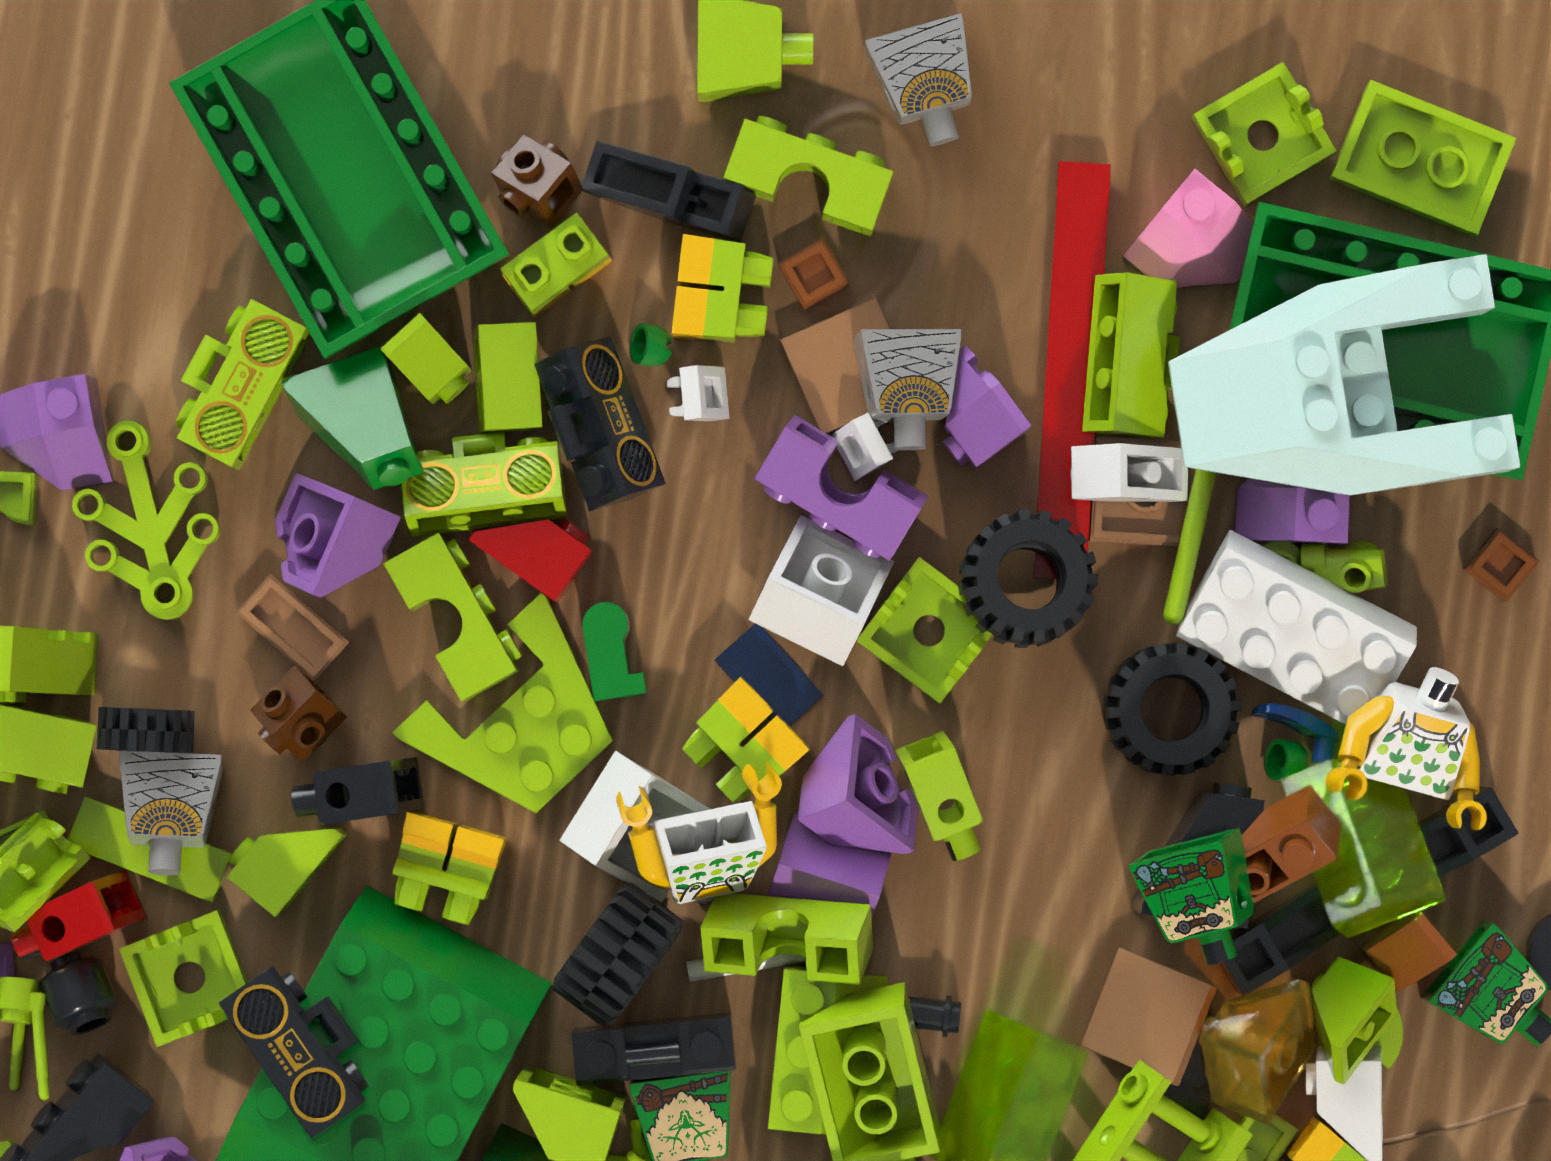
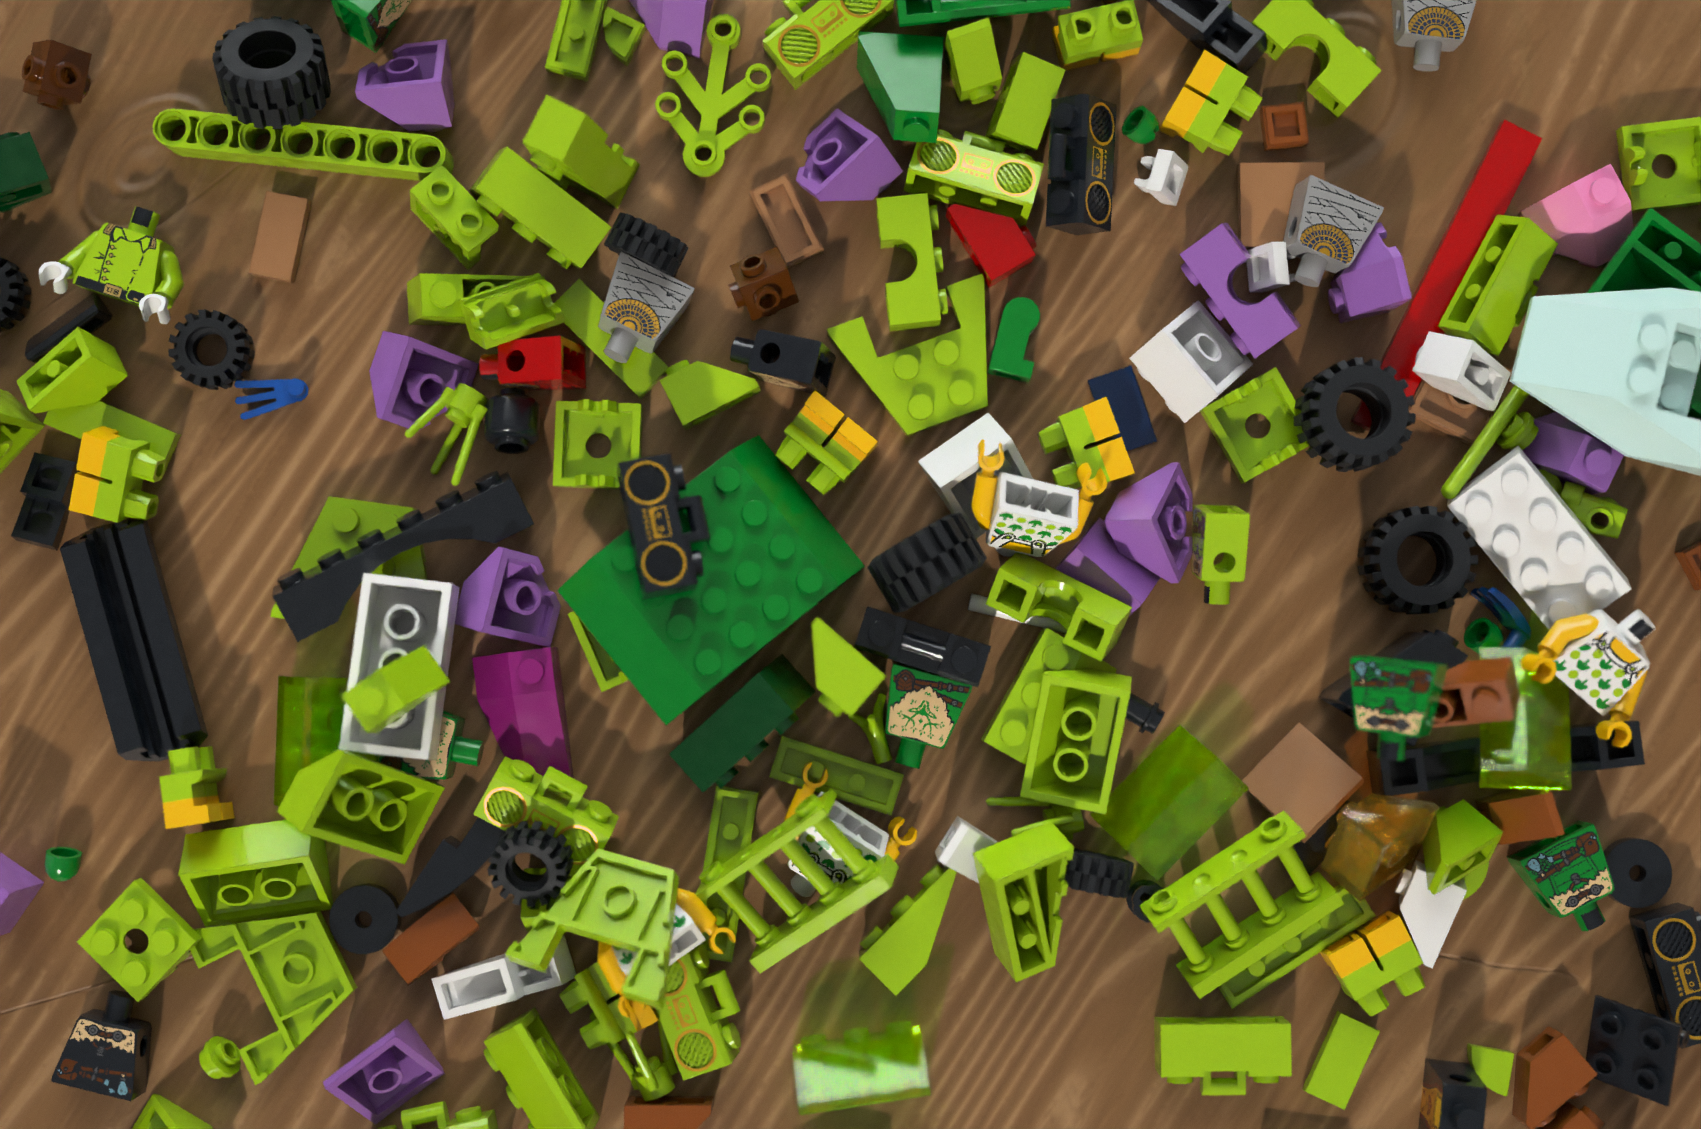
camera: 25 degrees right, 0 degrees up
(1225, 511) = (1518, 432): none -> lime plate

